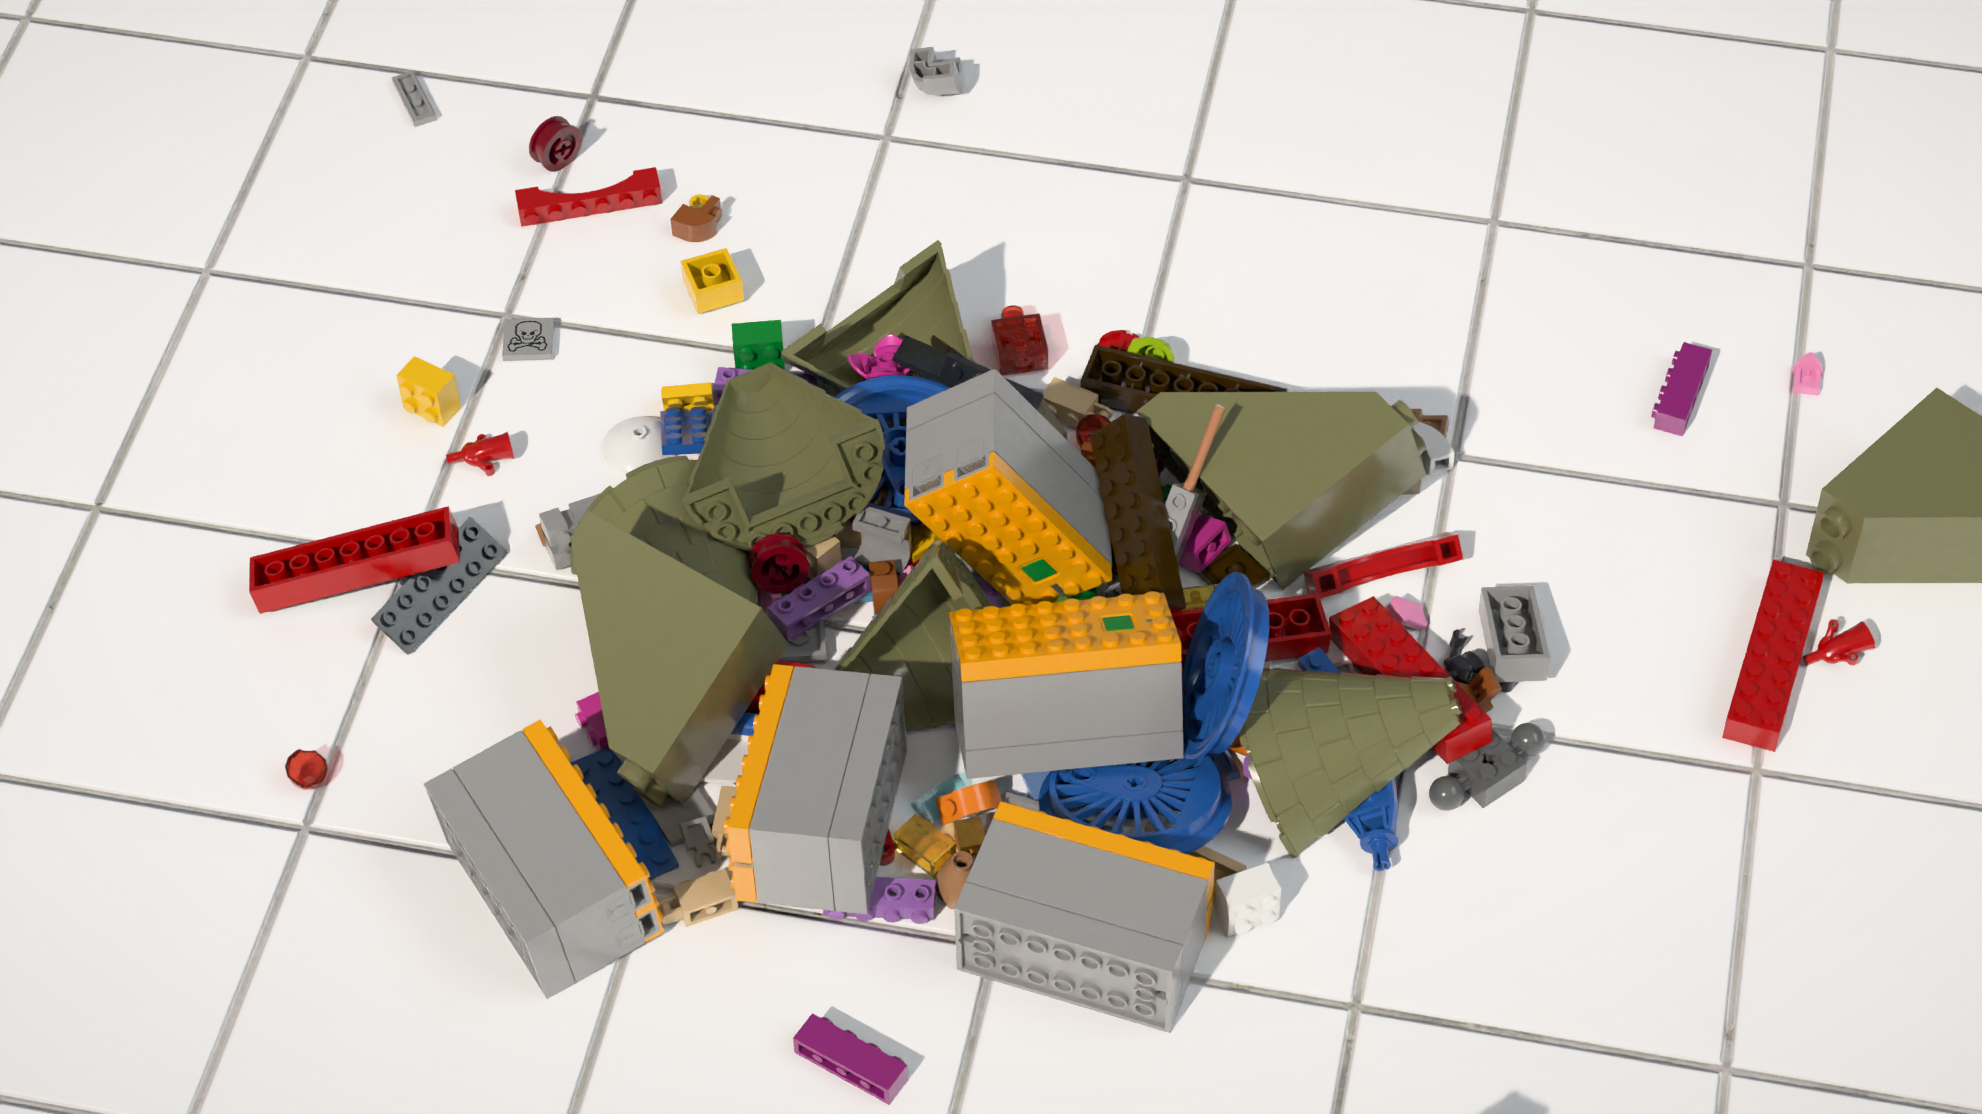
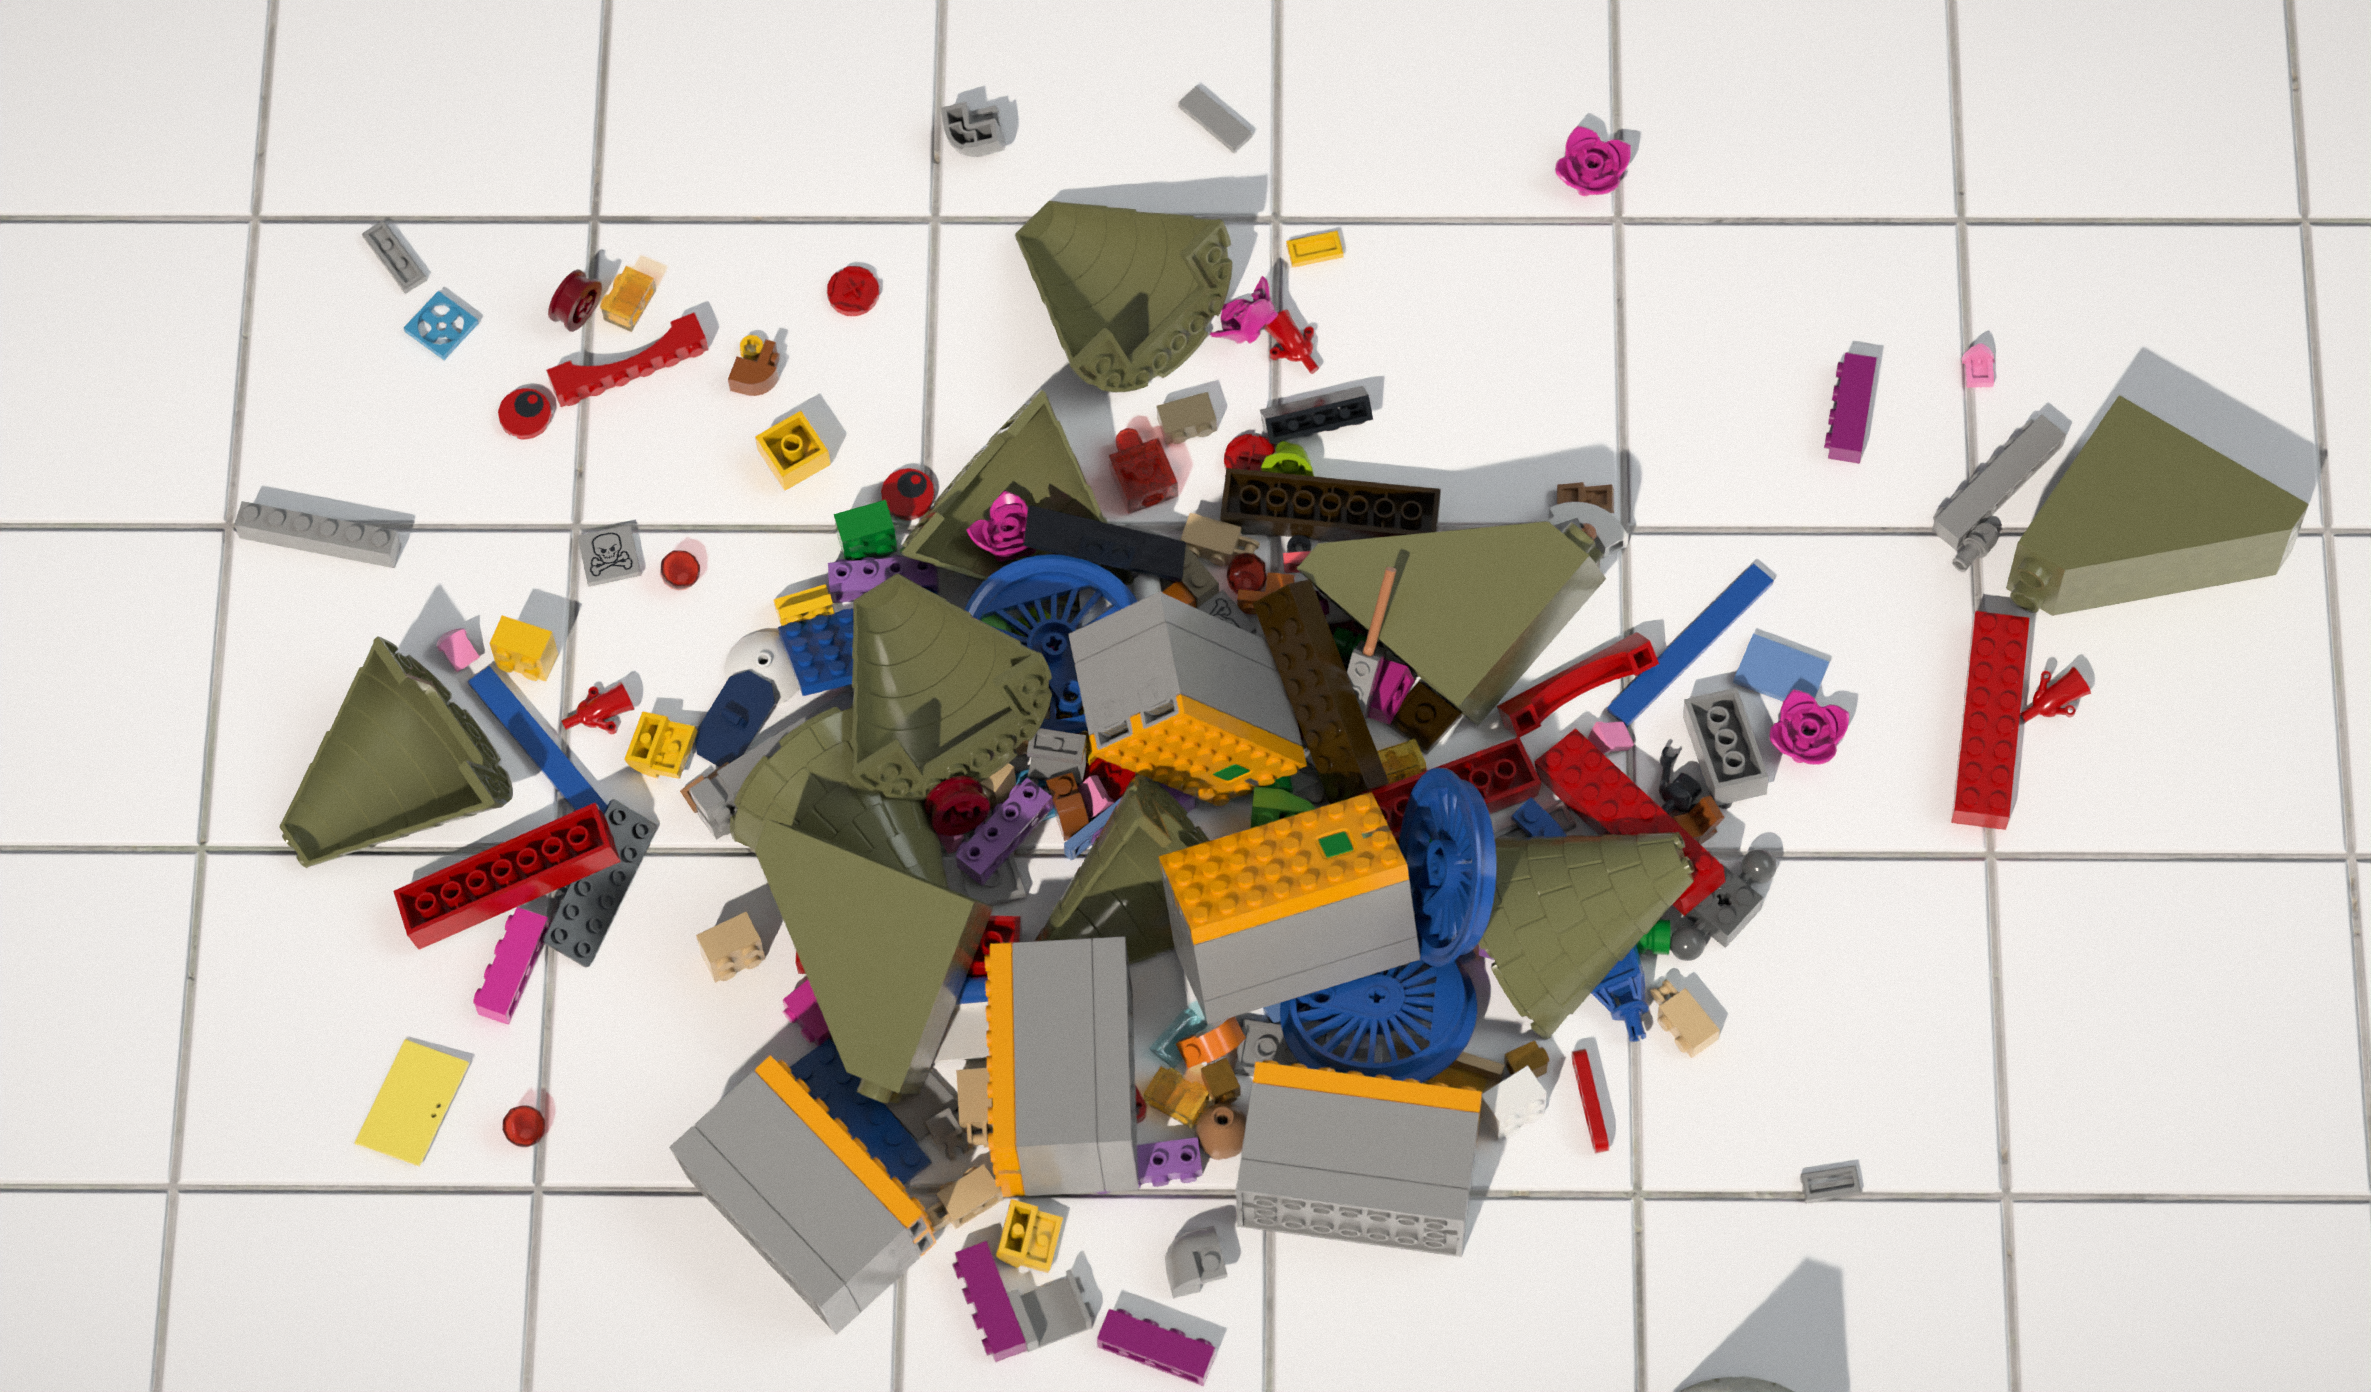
camera: 10 degrees left, 15 degrees up
(210, 737) = (403, 1111): none -> light yellow container
(279, 283) = (317, 534): none -> light grey brick
(279, 454) = (392, 764): none -> olive cone
(338, 640) = (511, 966): none -> dark pink brick
(372, 387) = (457, 648): none -> bright pink tile
(413, 461) = (534, 740): none -> blue tile
(445, 162) = (425, 314): none -> dark azure piece
(488, 224) = (524, 413): none -> red tile
(526, 486) = (660, 746): none -> yellow brick
(541, 651) = (730, 947): none -> tan brick
(585, 356) = (679, 570): none -> clear red hair
(603, 153) = (628, 298): none -> clear yellow brick
(603, 468) = (734, 718): none -> dark blue shield
(700, 992) = (990, 1301): none -> magenta brick
(751, 940) = (1028, 1237): none -> yellow brick
(757, 1012) = (1052, 1312): none -> light grey panel
(800, 177) = (853, 291): none -> red tile
(800, 324) = (908, 493): none -> red tile
(905, 986) = (1193, 1261): none -> light grey brick
(1044, 199) = (1126, 287): none -> olive cone
(1070, 309) = (1186, 418): none -> dark tan brick
(1145, 238) = (1245, 318): none -> dark pink brick
(1150, 99) = (1215, 119): none -> light grey tile
(1177, 262) = (1291, 339): none -> red piece
(1188, 321) = (1316, 414): none -> black brick
(1215, 203) = (1314, 249): none -> yellow tile
(1280, 867) = (1527, 1055): none -> pearl gold brick
(1324, 914) = (1590, 1101): none -> red beam
(1414, 783) = (1656, 939): none -> green wheel
(1431, 859) = (1684, 1019): none -> tan brick
(1477, 173) = (1586, 149): none -> dark pink brick
(1496, 554) = (1690, 645): none -> blue tile
(1549, 1032) = (1834, 1194): none -> light grey tile
(1579, 588) = (1779, 669): none -> medium blue tile
(1595, 635) = (1803, 713): none -> dark pink brick
(1782, 513) = (1976, 545): none -> light grey arm
(1809, 466) = (1999, 481): none -> light grey brick

